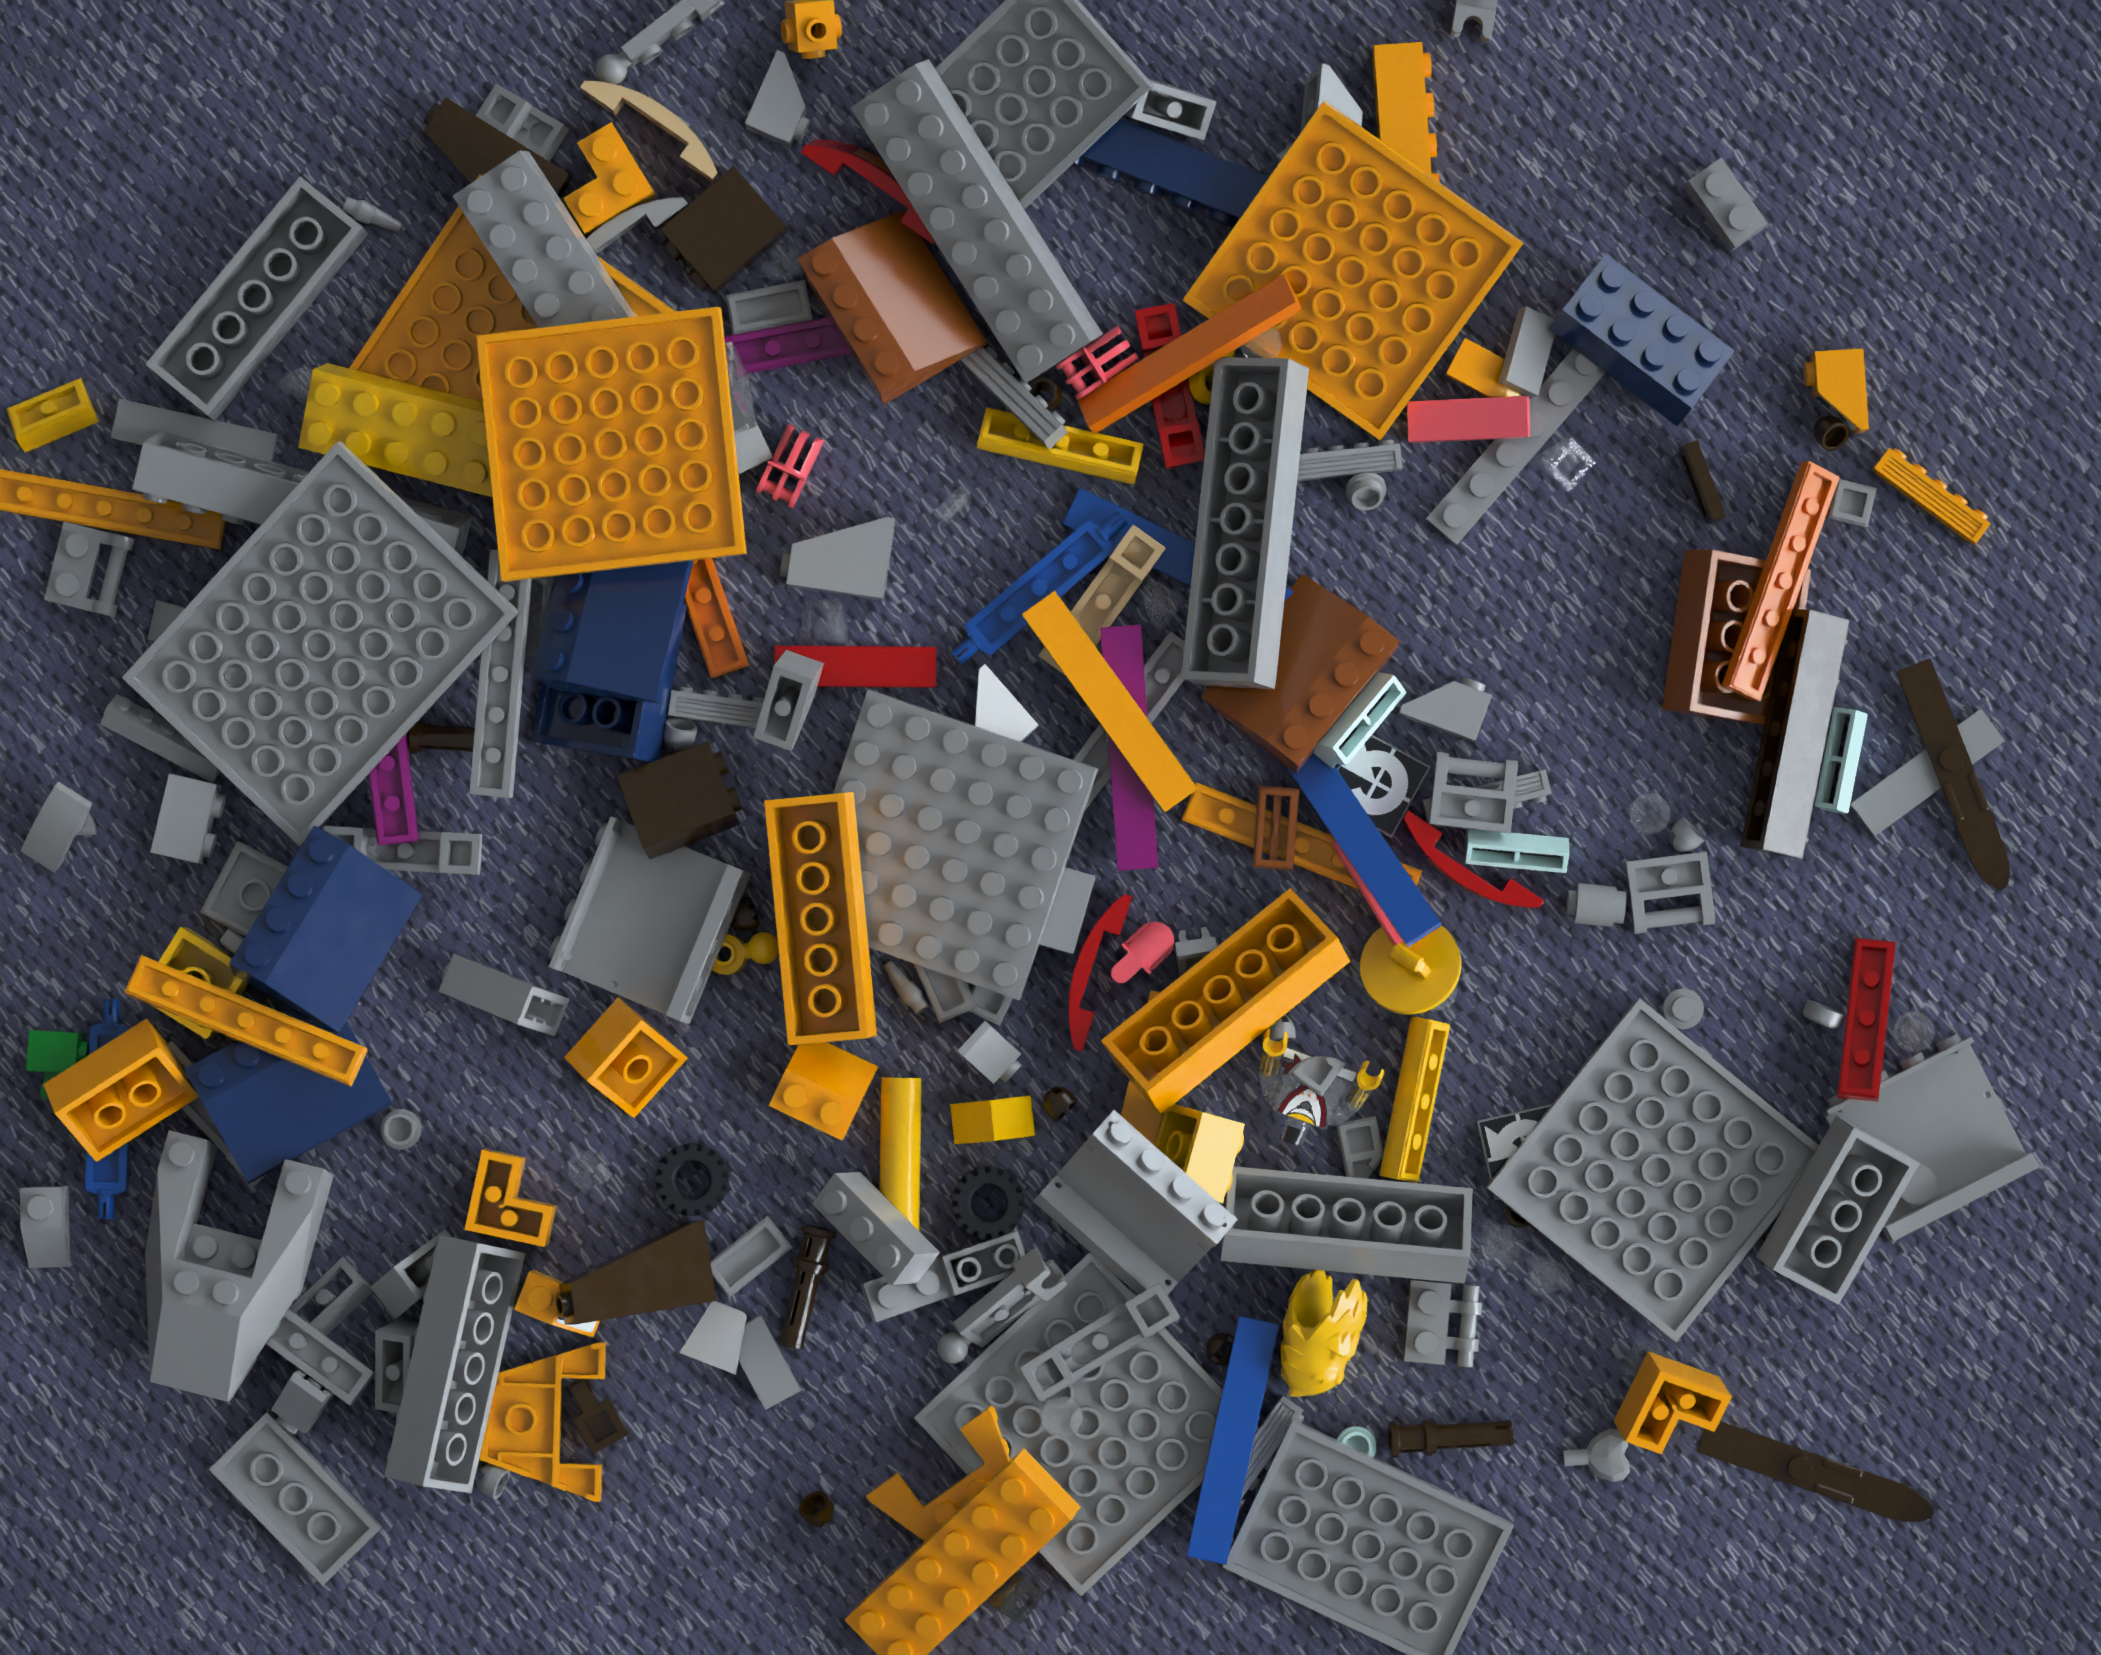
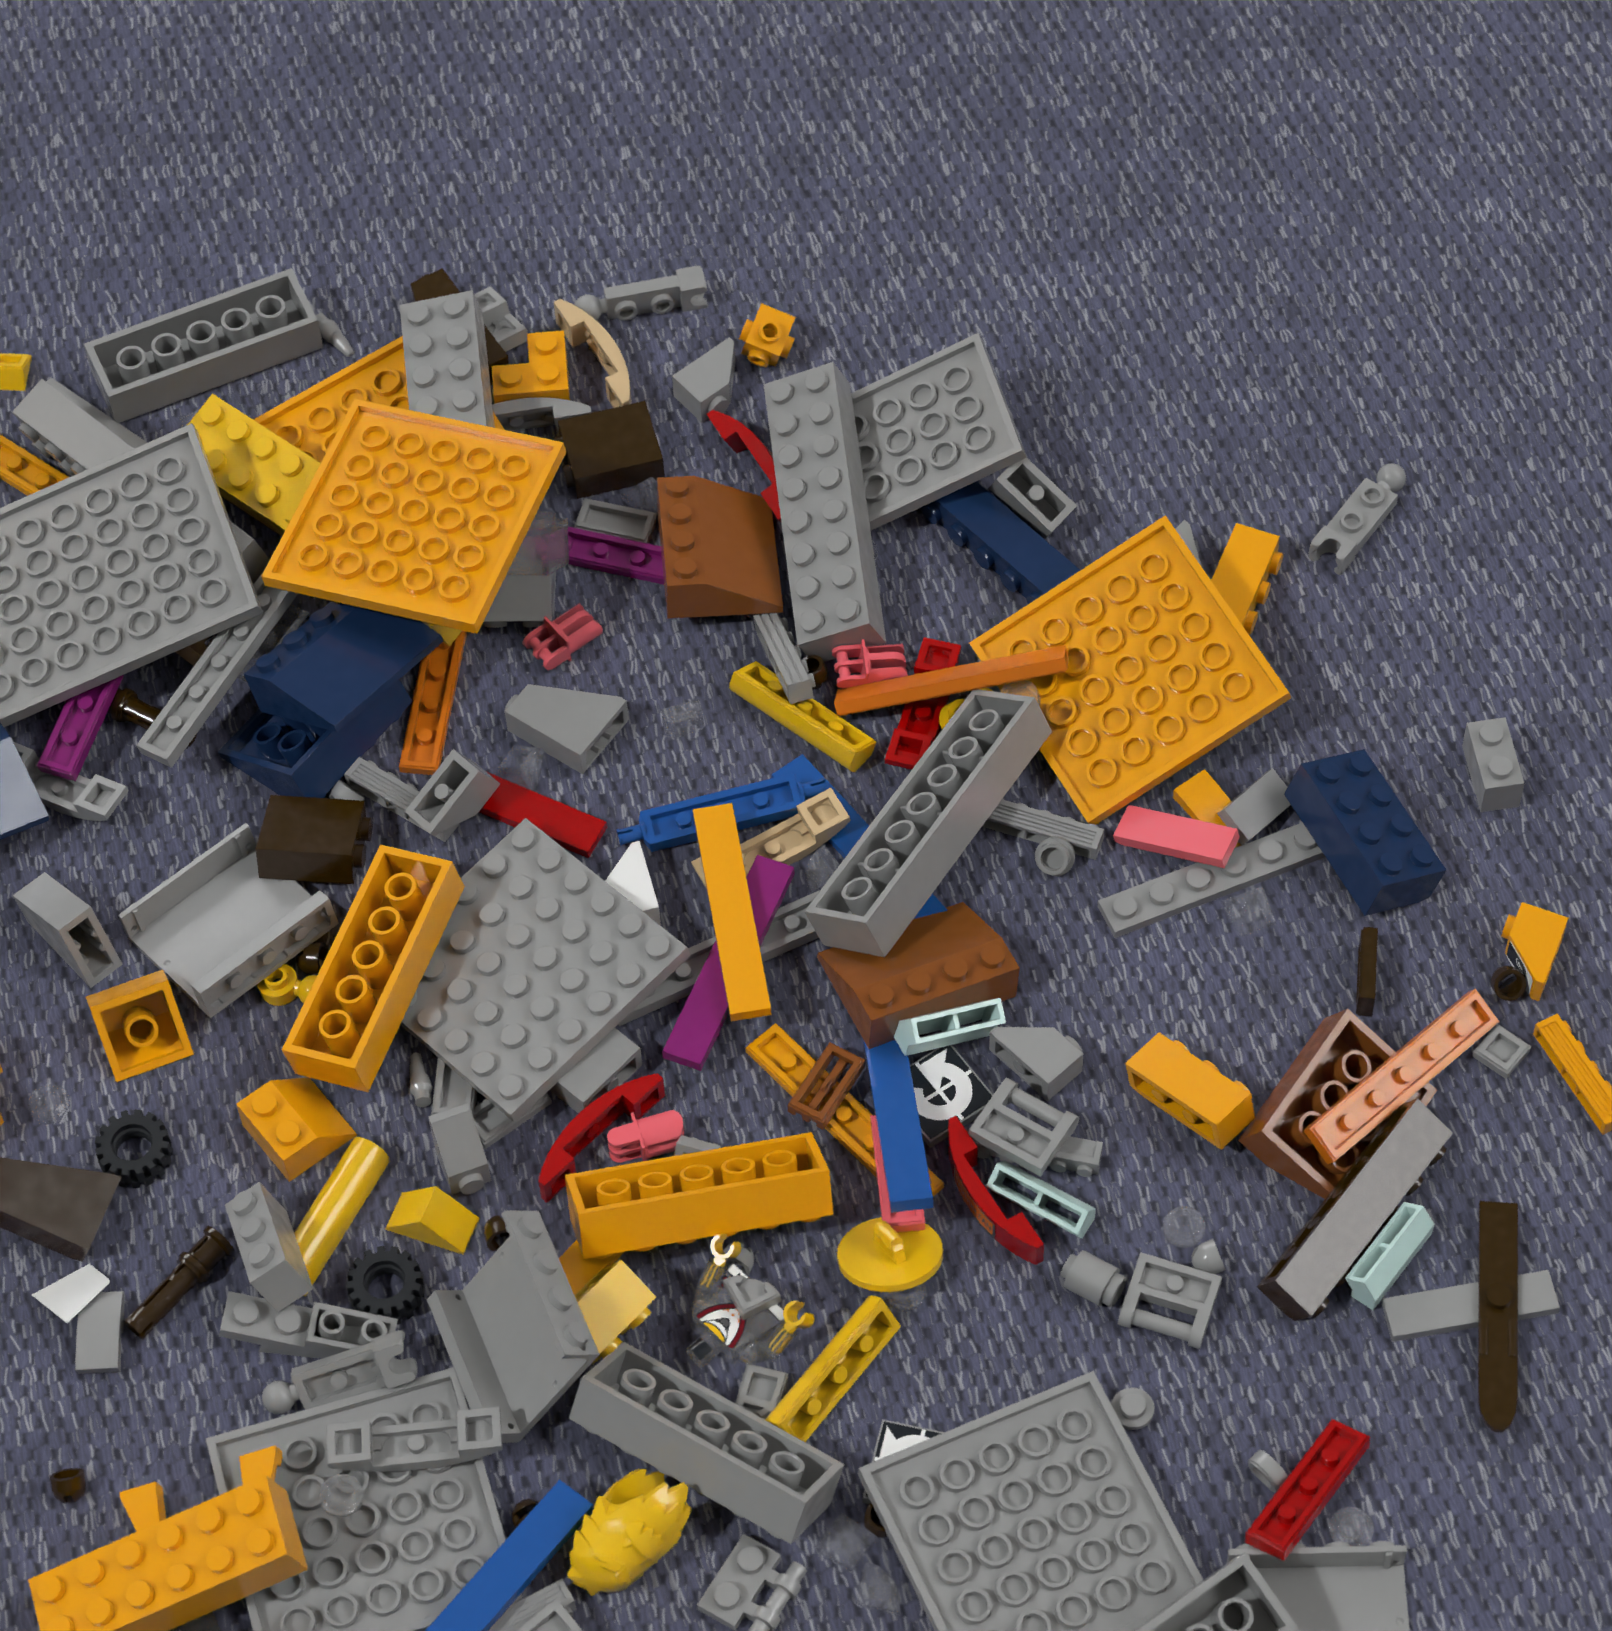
camera: 30 degrees right, 30 degrees down
(749, 1256) = (143, 1239): light grey tile -> none
(1601, 683) = (1190, 1090): none -> light orange brick

